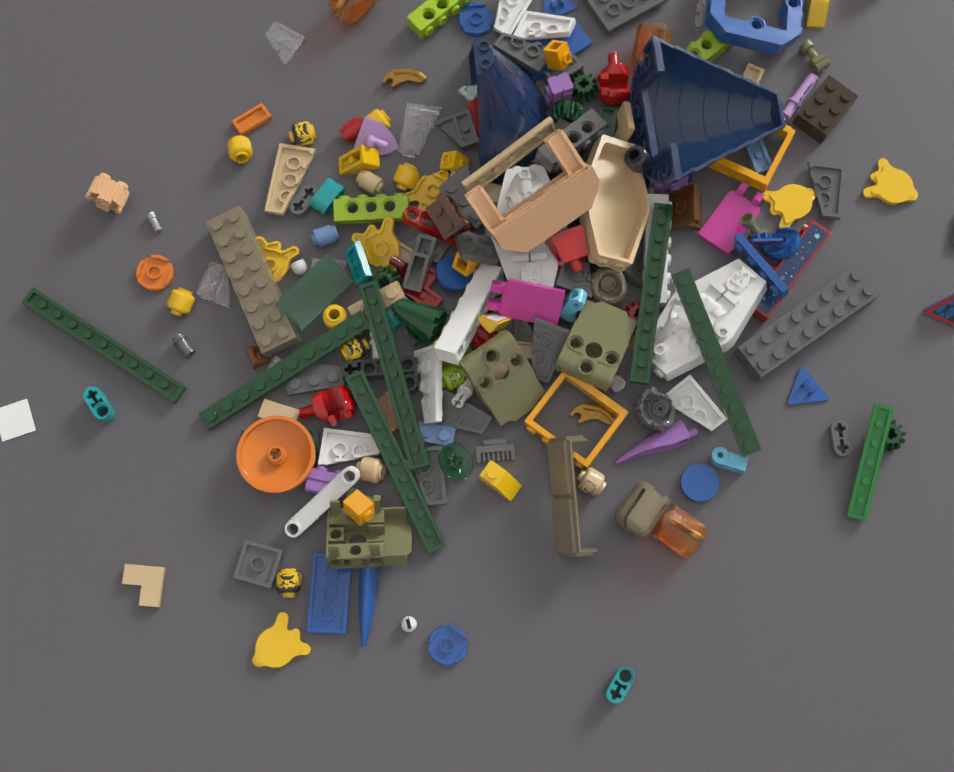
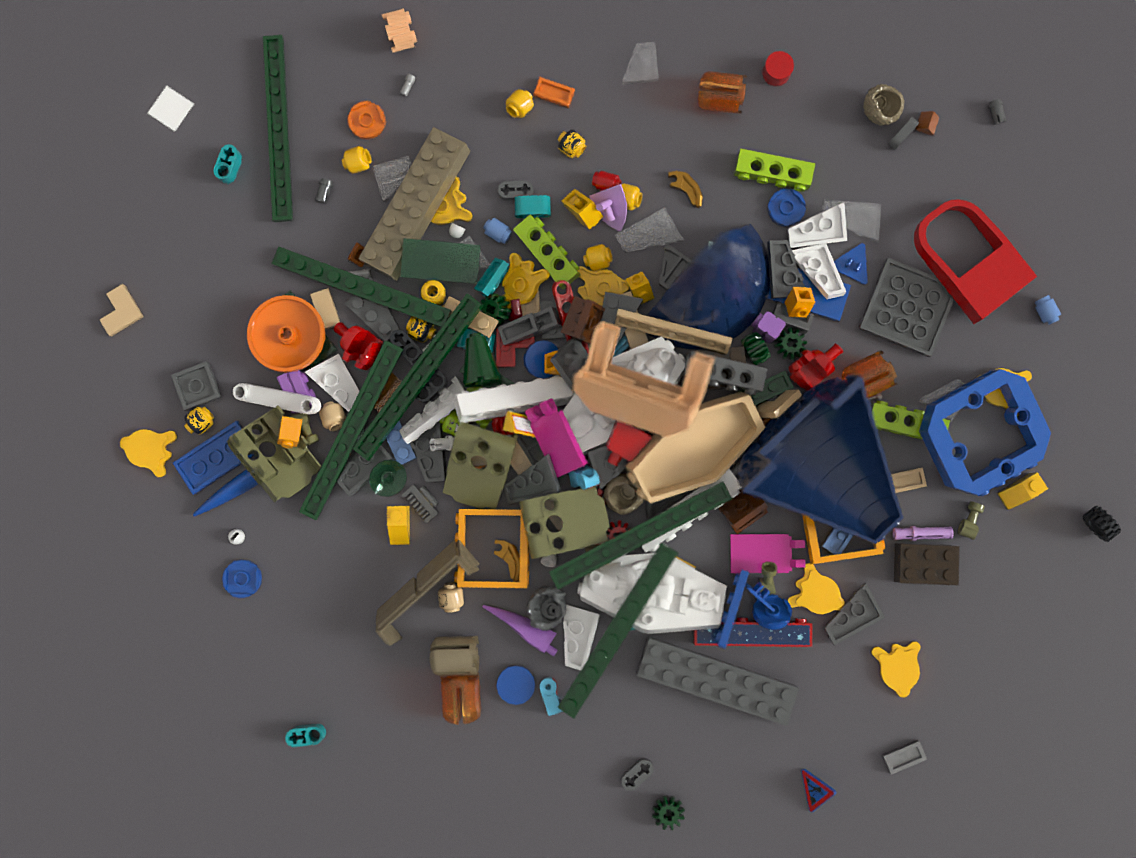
camera: 60 degrees right, 10 degrees up
(287, 175) = (528, 159): tan wing -> none
(370, 182) = (571, 231): tan brick -> none
(637, 159) = (748, 440): black head -> none
(806, 390) = (660, 717): blue piece -> none
(870, 462) = (632, 813): green tile -> none

